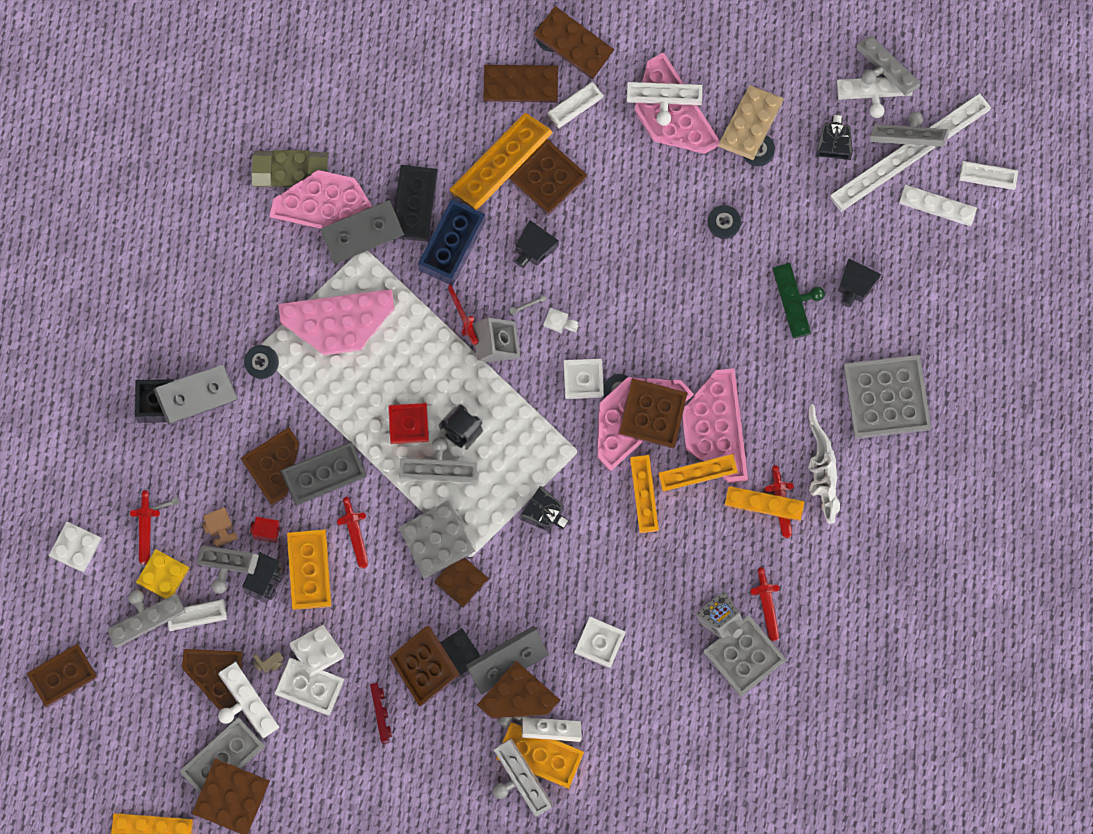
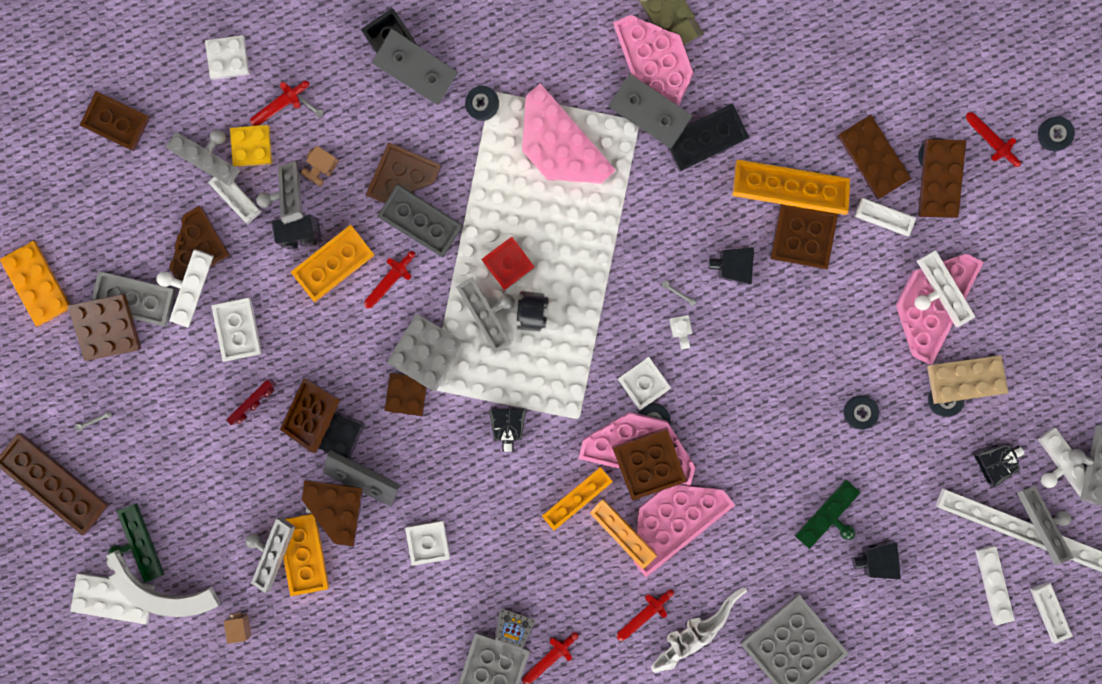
camera: 55 degrees right, 15 degrees up
(265, 529) = (341, 204): red brick -> none
(272, 663) = (236, 287): dark tan bracket -> none
(316, 650) = (269, 315): white plate -> none
(451, 242) = (691, 193): dark blue brick -> none
(467, 320) = (628, 254): red sword -> none
(496, 340) = (629, 288): light grey slope -> none
(551, 729) = (329, 552): white plate -> none
(764, 503) = (634, 603): light orange plate -> none

